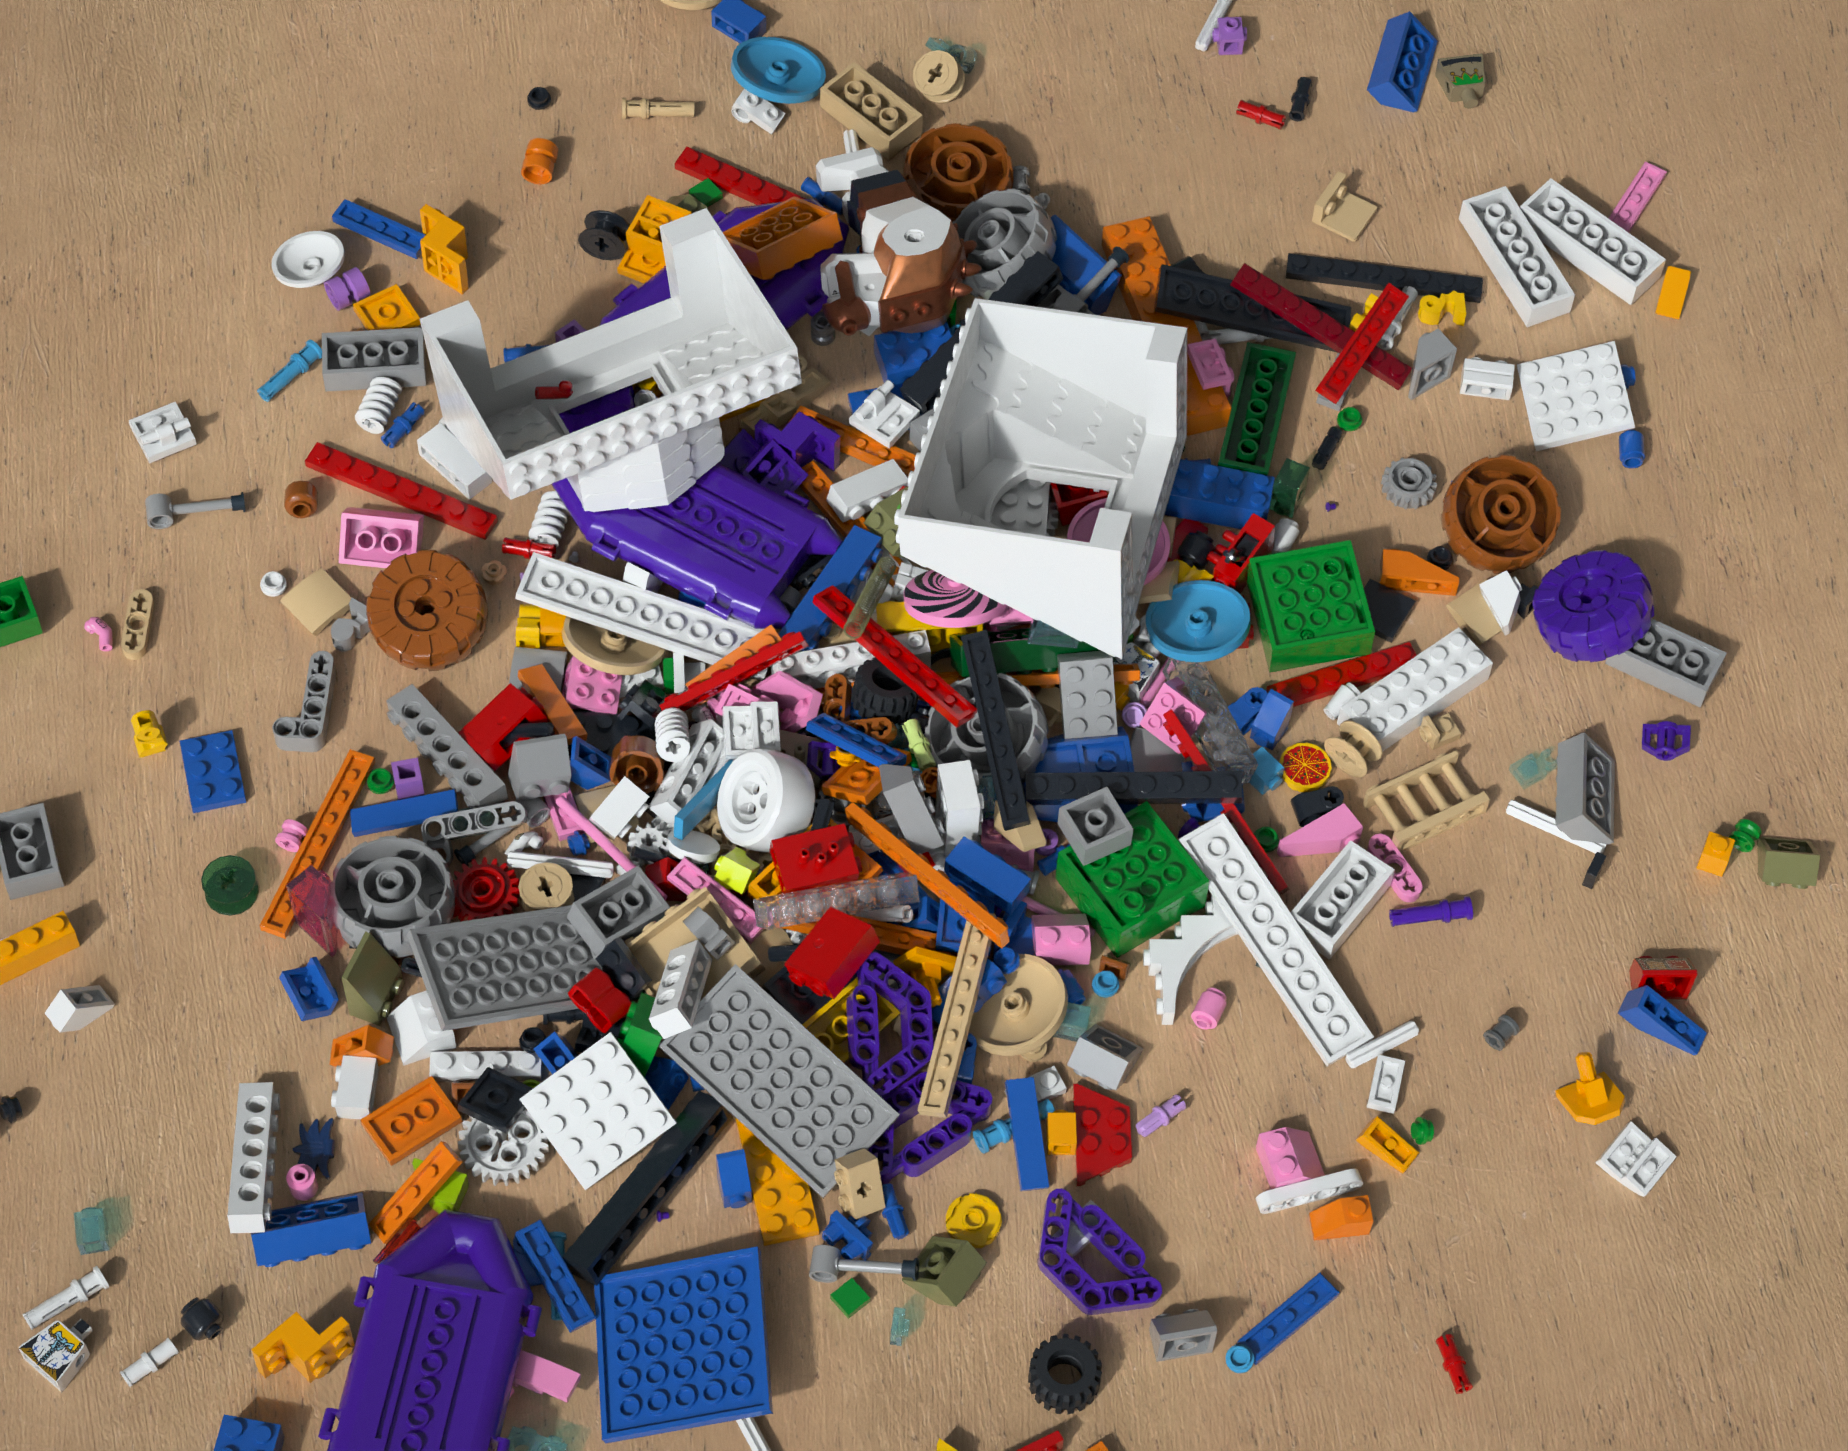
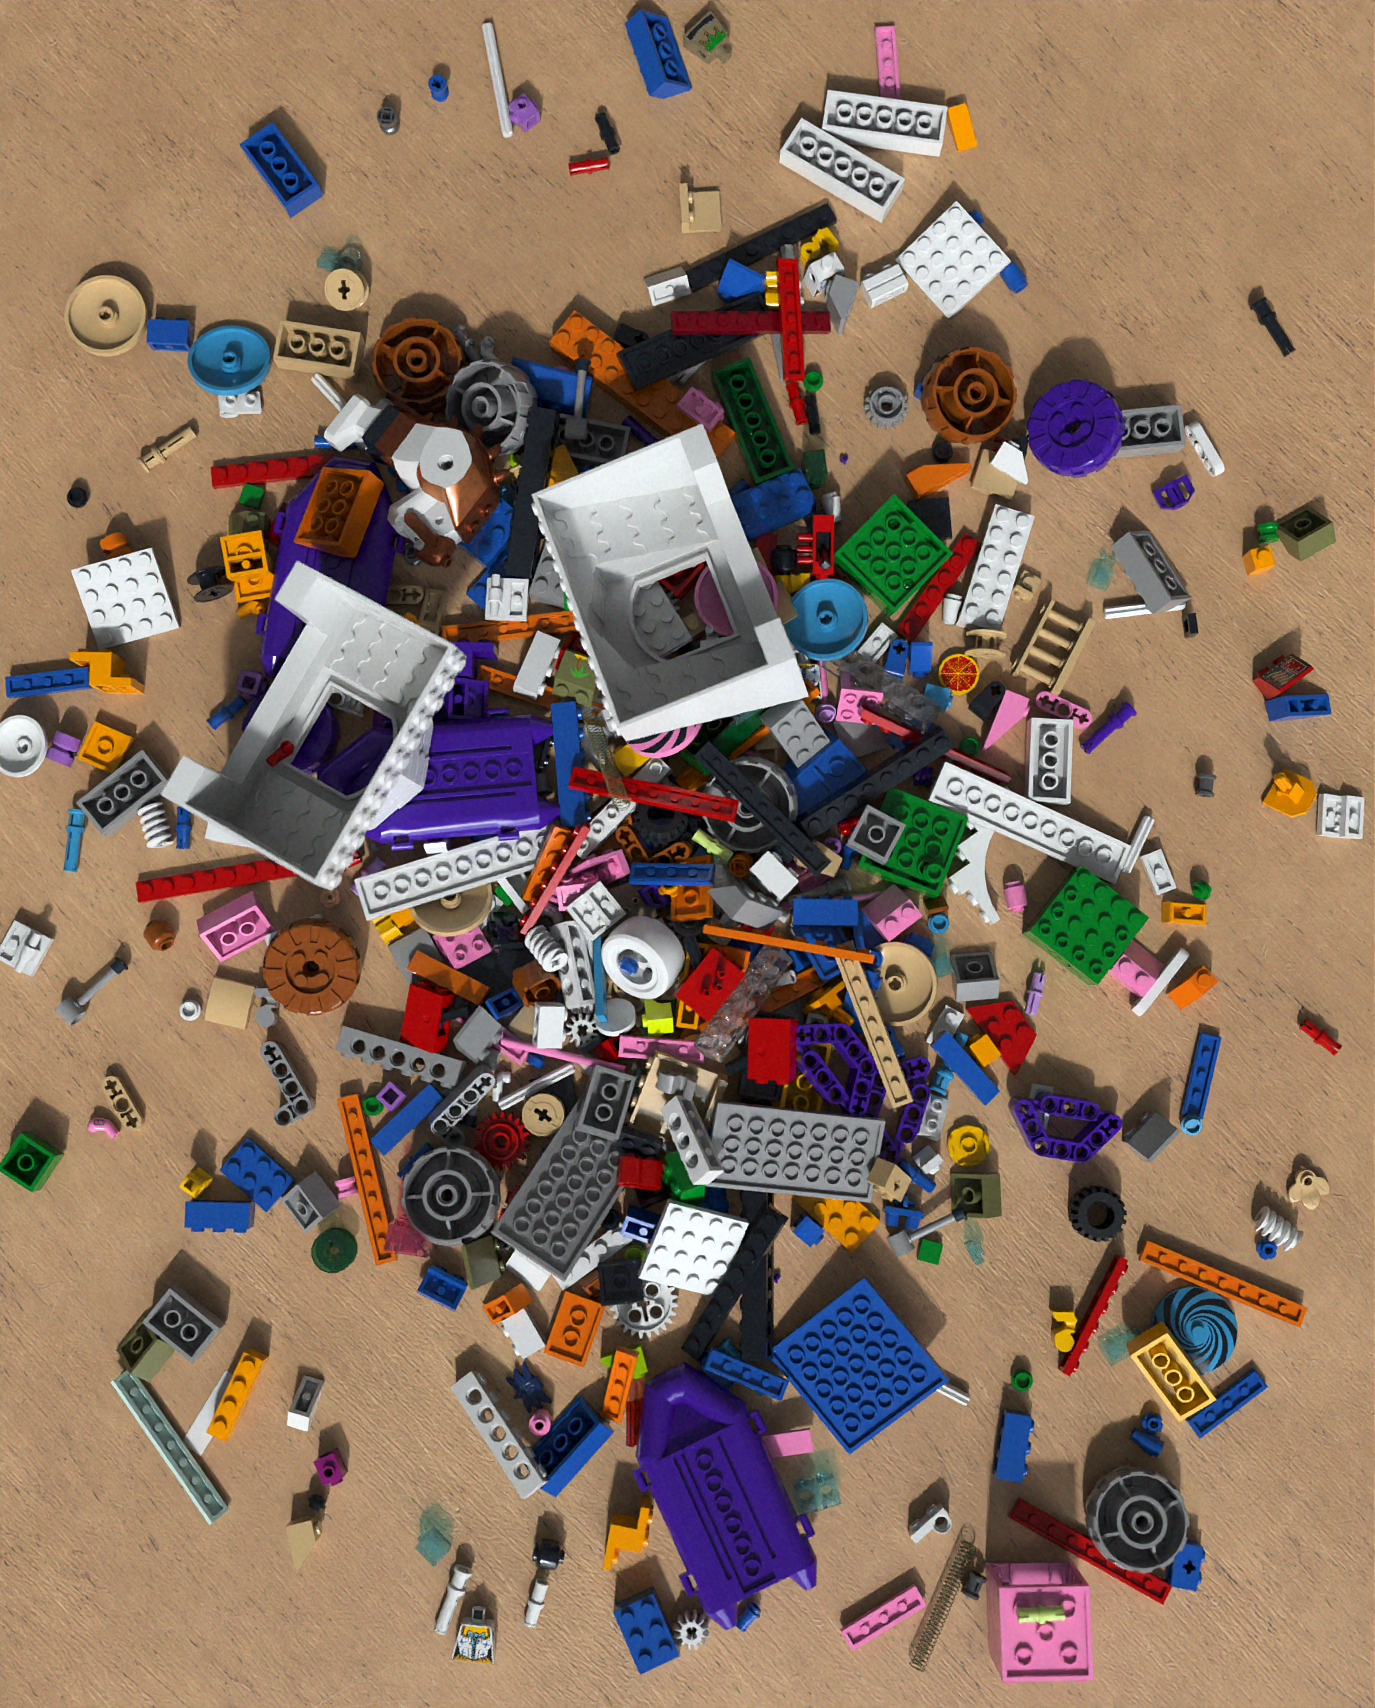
camera: 30 degrees left, 25 degrees up
(53, 1084) = (330, 1467): none -> magenta brick
(145, 779) = (219, 1215): none -> blue brick
(244, 825) = (310, 1202): none -> light grey slope
(515, 200) = (125, 598): none -> white plate
(617, 1175) = (734, 1283): none -> black plate
(623, 281) = (251, 607): none -> light orange arm
(744, 796) = (628, 965): none -> blue plate
(917, 1200) = (928, 1160): none -> white plate
(953, 1164) = (933, 1118): none -> white plate
(1237, 684) = (878, 643): none -> white plate
(1261, 256) = (667, 286): none -> white panel
(1263, 1075) = (1085, 925): none -> green piece
(1317, 428) = (796, 403): none -> red pin
(1337, 285) = (739, 282): none -> blue slope
(1429, 321) = (823, 271): none -> white torso
(1729, 718) = (1204, 448): none -> white beam

